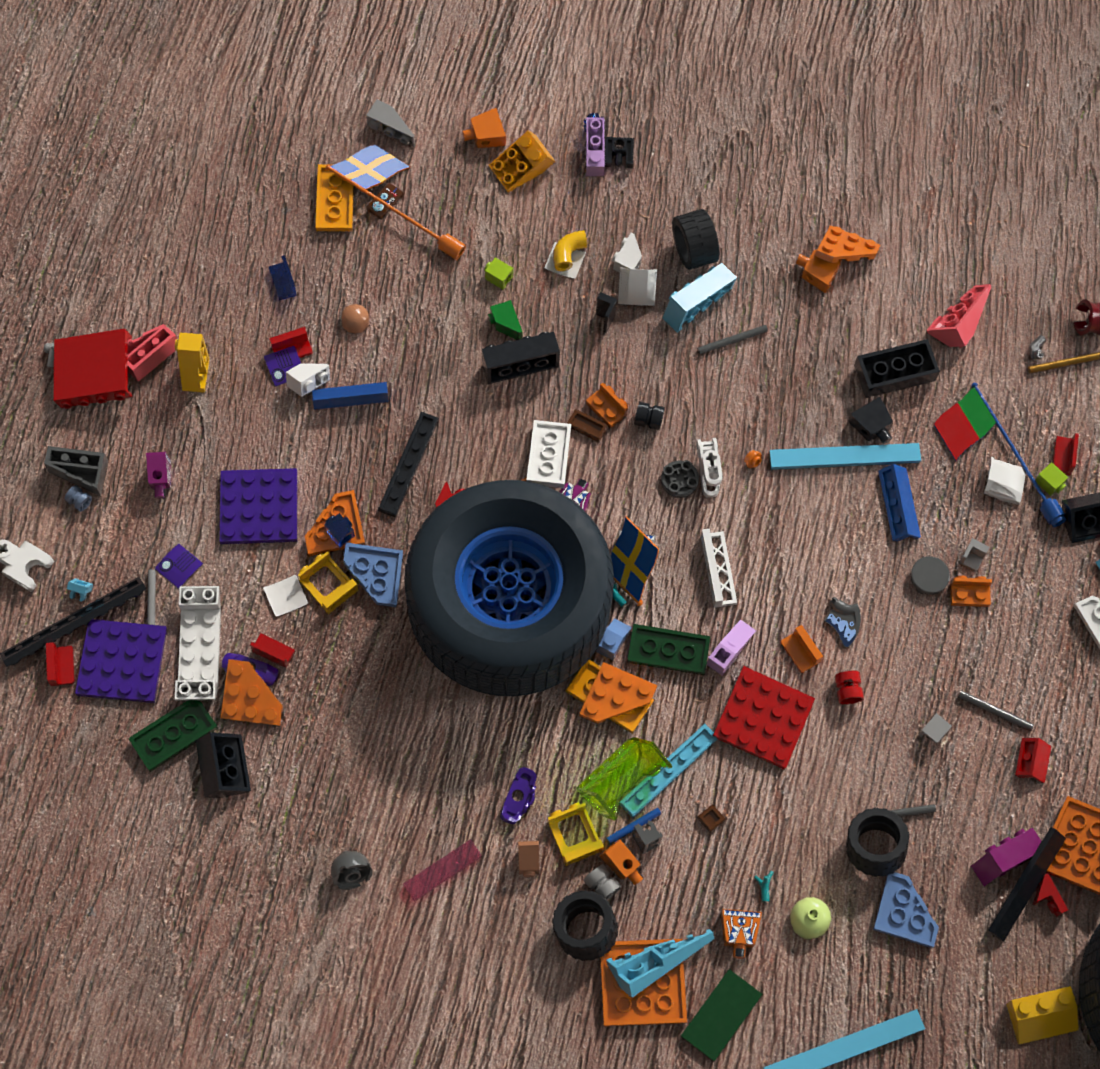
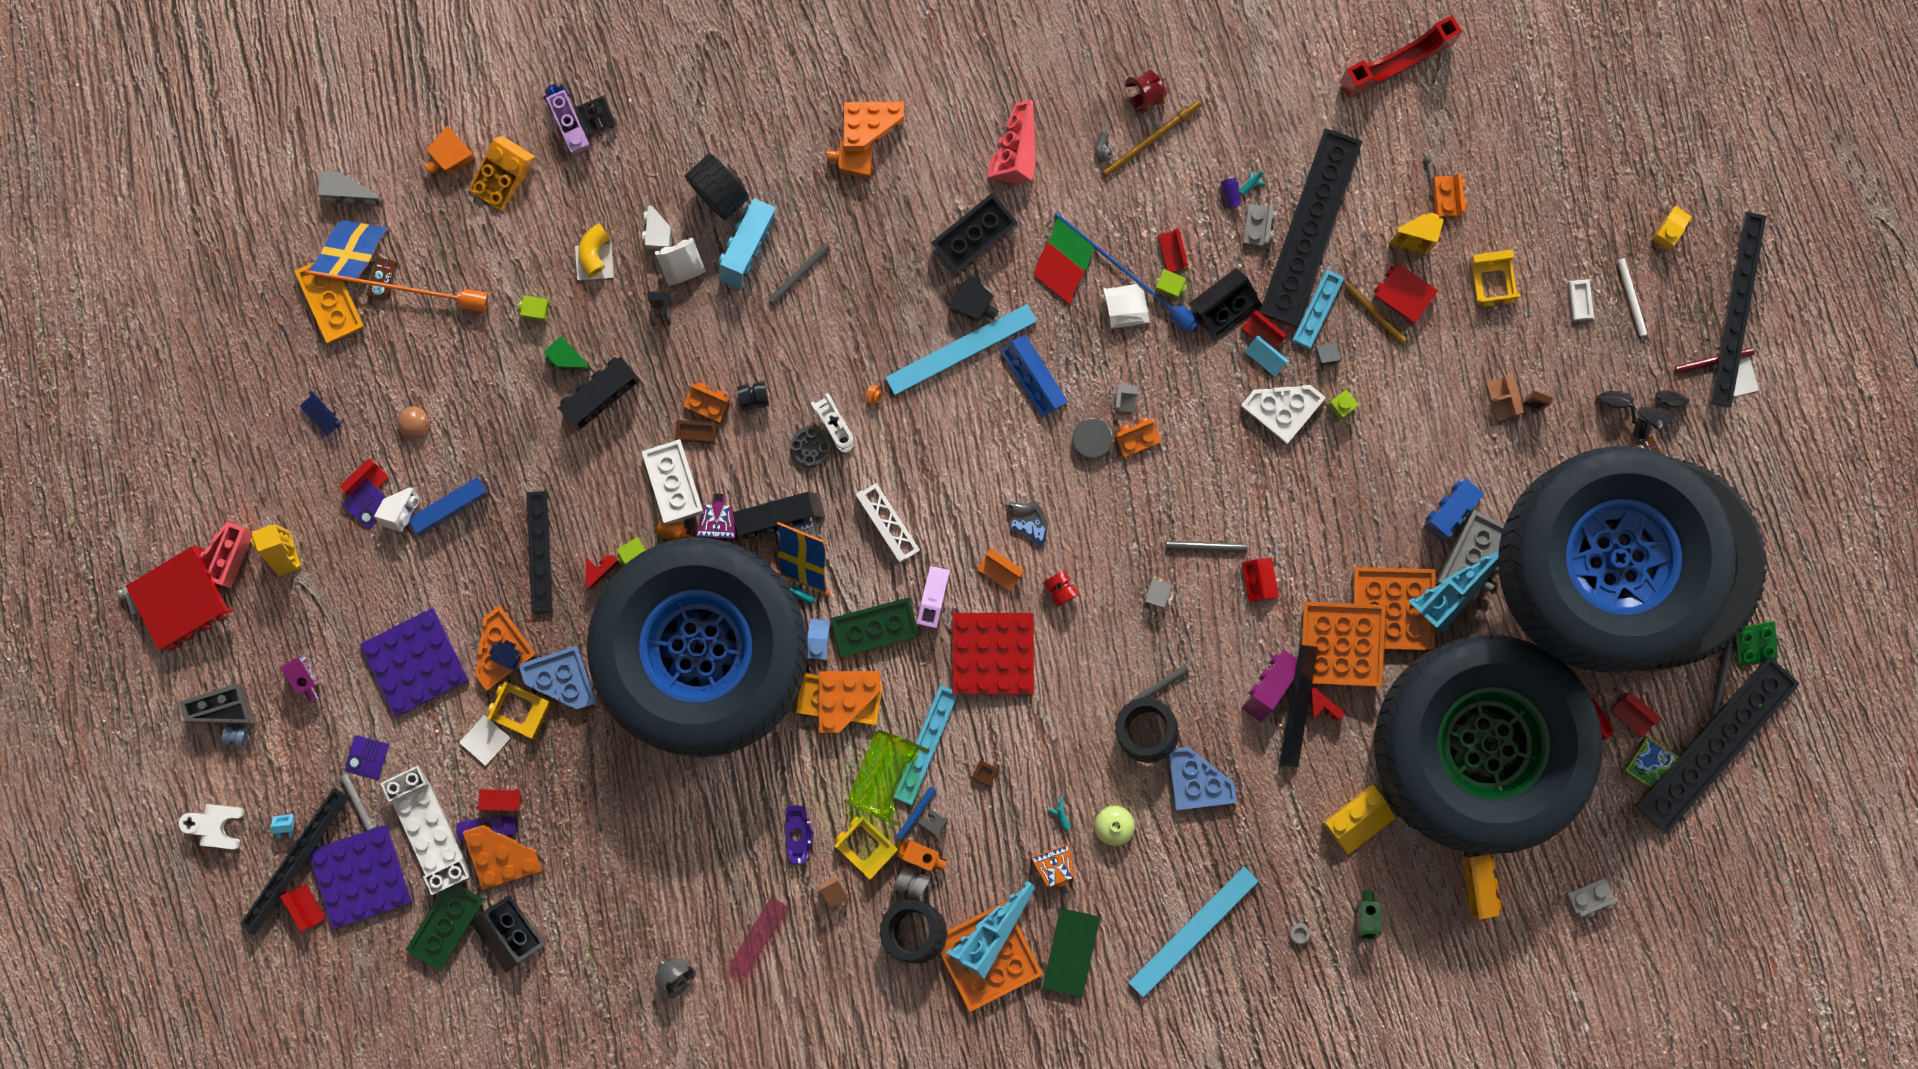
camera: 25 degrees left, 15 degrees up
(647, 517) = (789, 511): none -> black wedge

